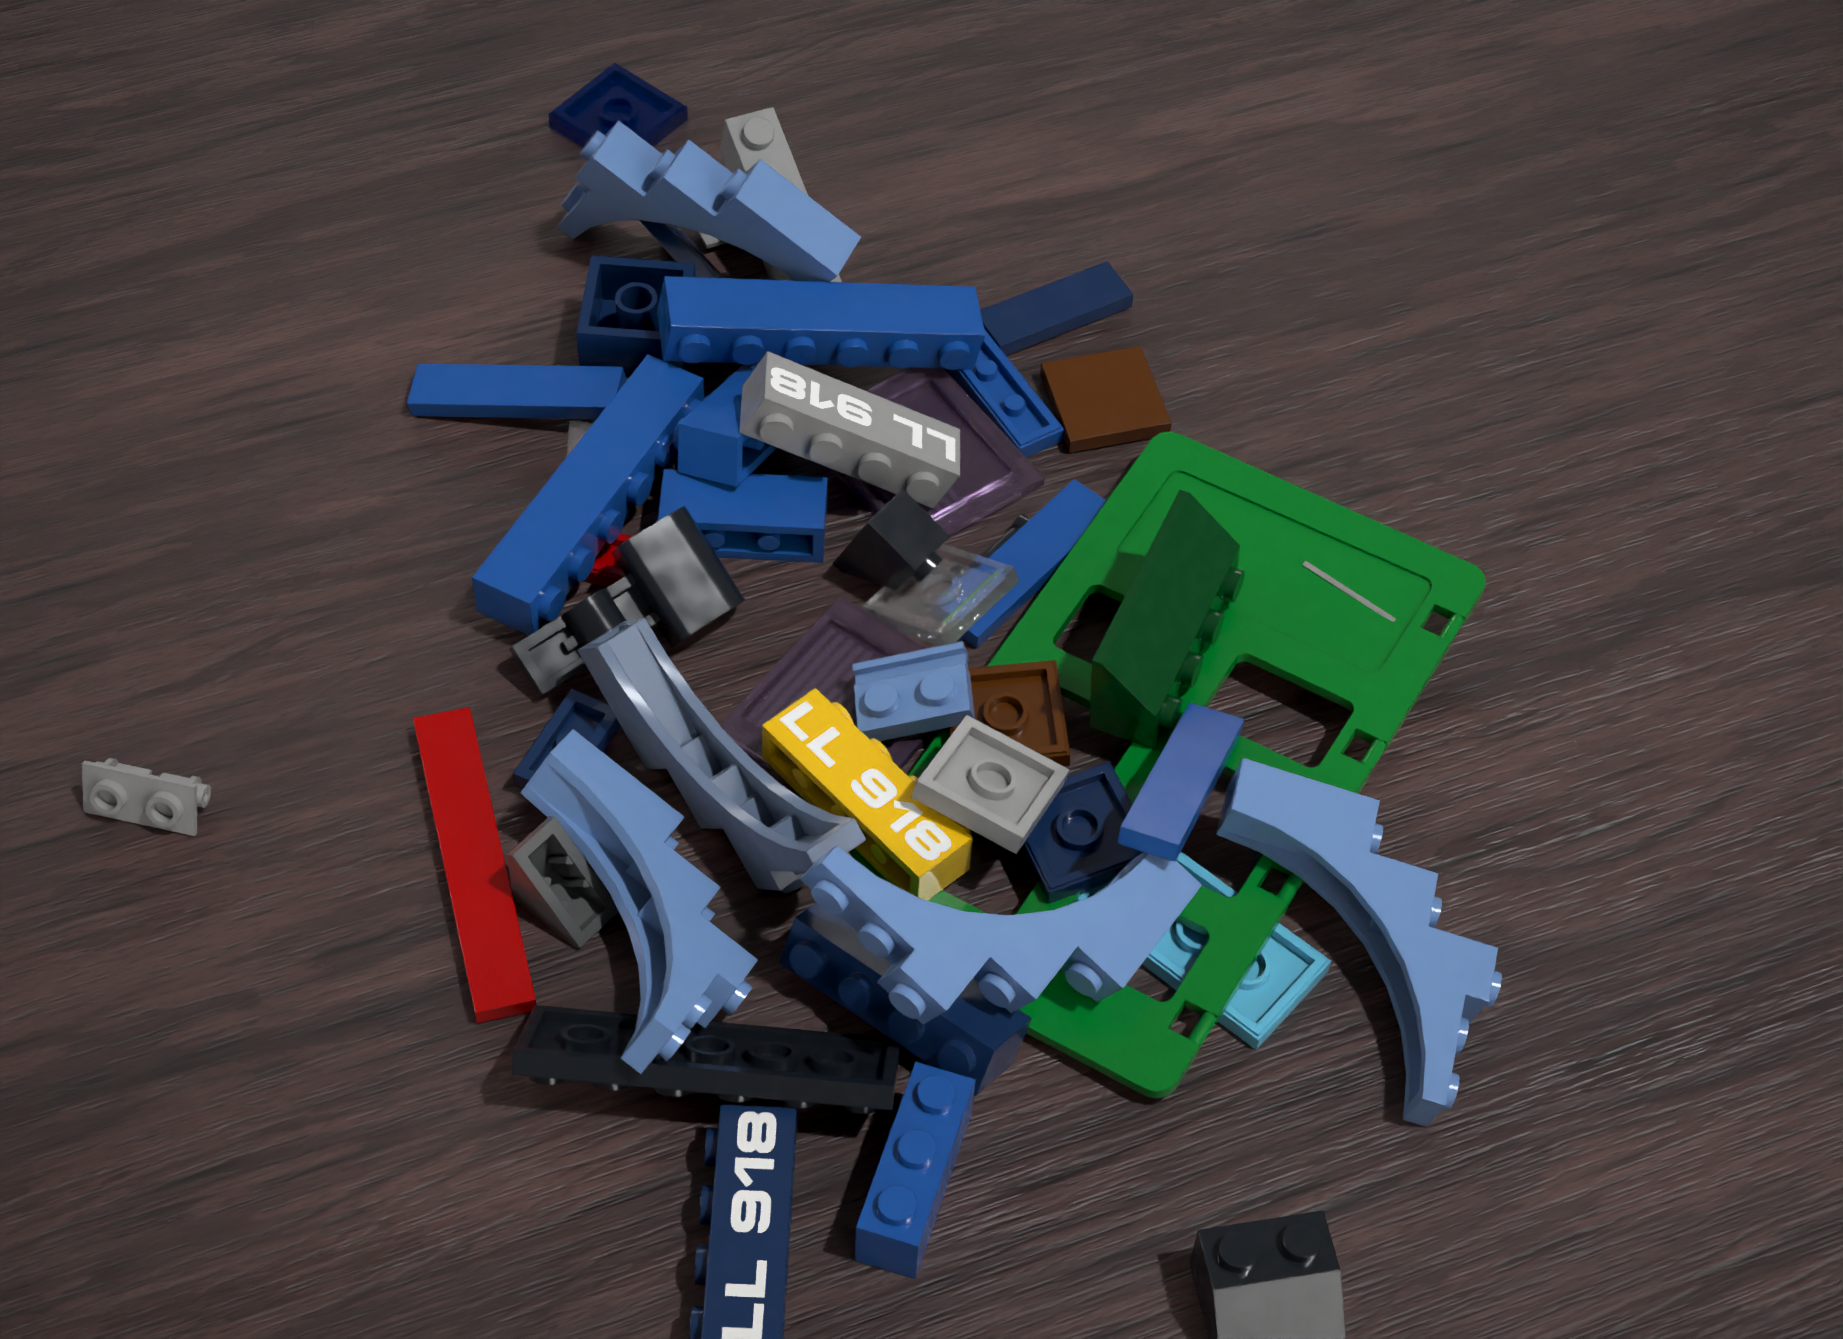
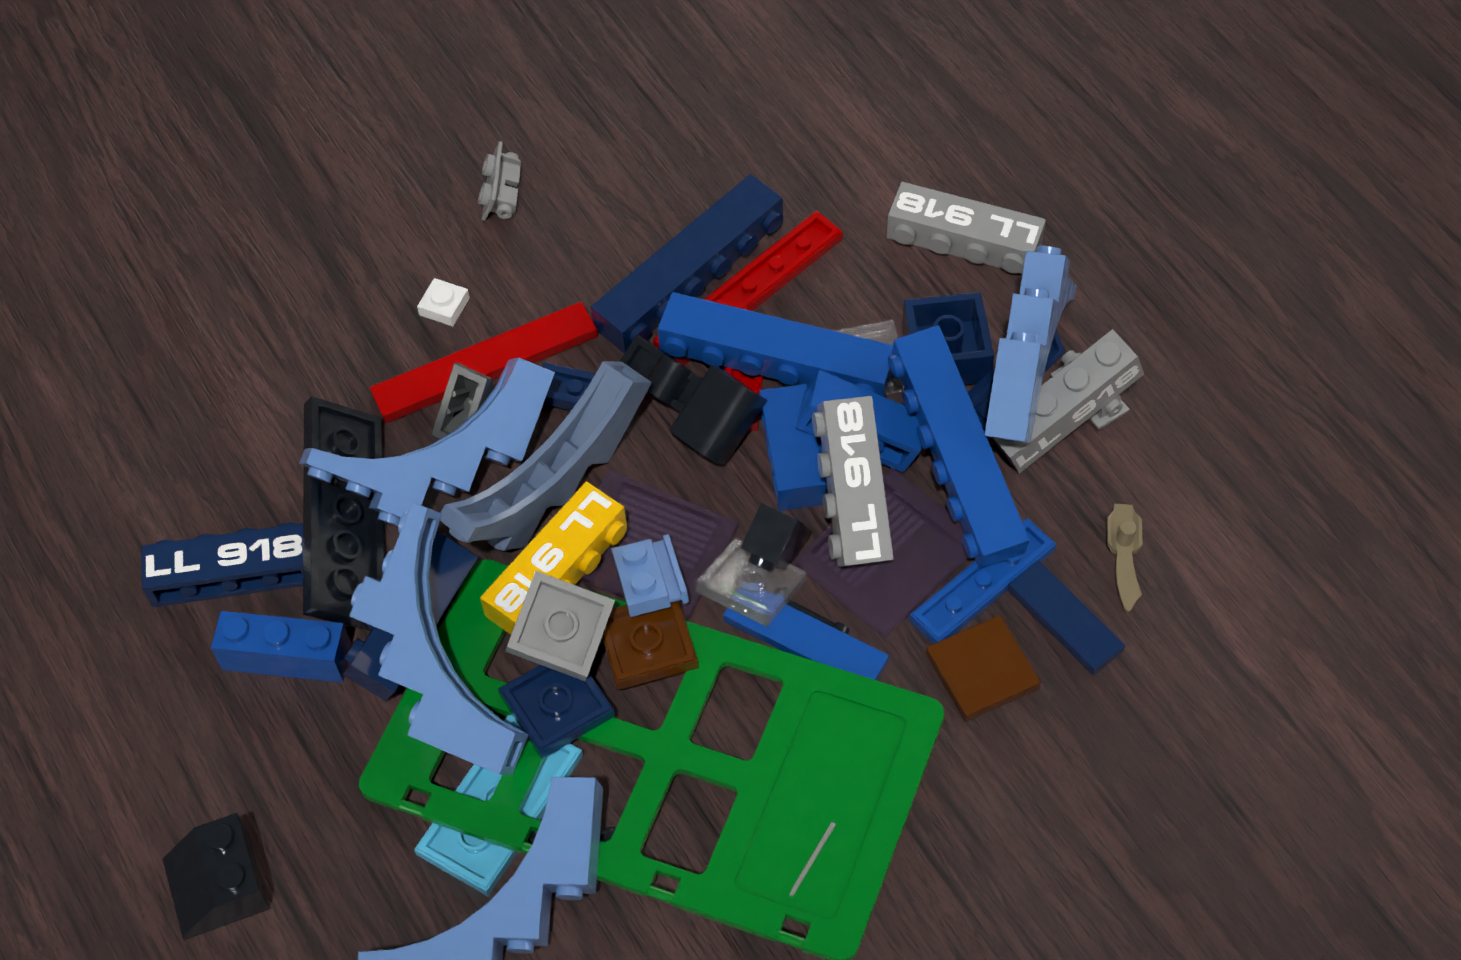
camera: 85 degrees right, 5 degrees up
(341, 901) = (443, 302): none -> white plate
(398, 578) = (688, 261): none -> dark blue brick
(434, 498) = (776, 266): none -> red tile
(454, 273) = (963, 227): none -> light grey brick
(513, 390) = (867, 286): blue tile -> none
(622, 97) = (1166, 292): clear blue tile -> none
(962, 232) = (1125, 540): none -> dark tan piece
(1164, 625) = (727, 716): dark green slope -> none
(1180, 782) = (584, 748): blue tile -> none

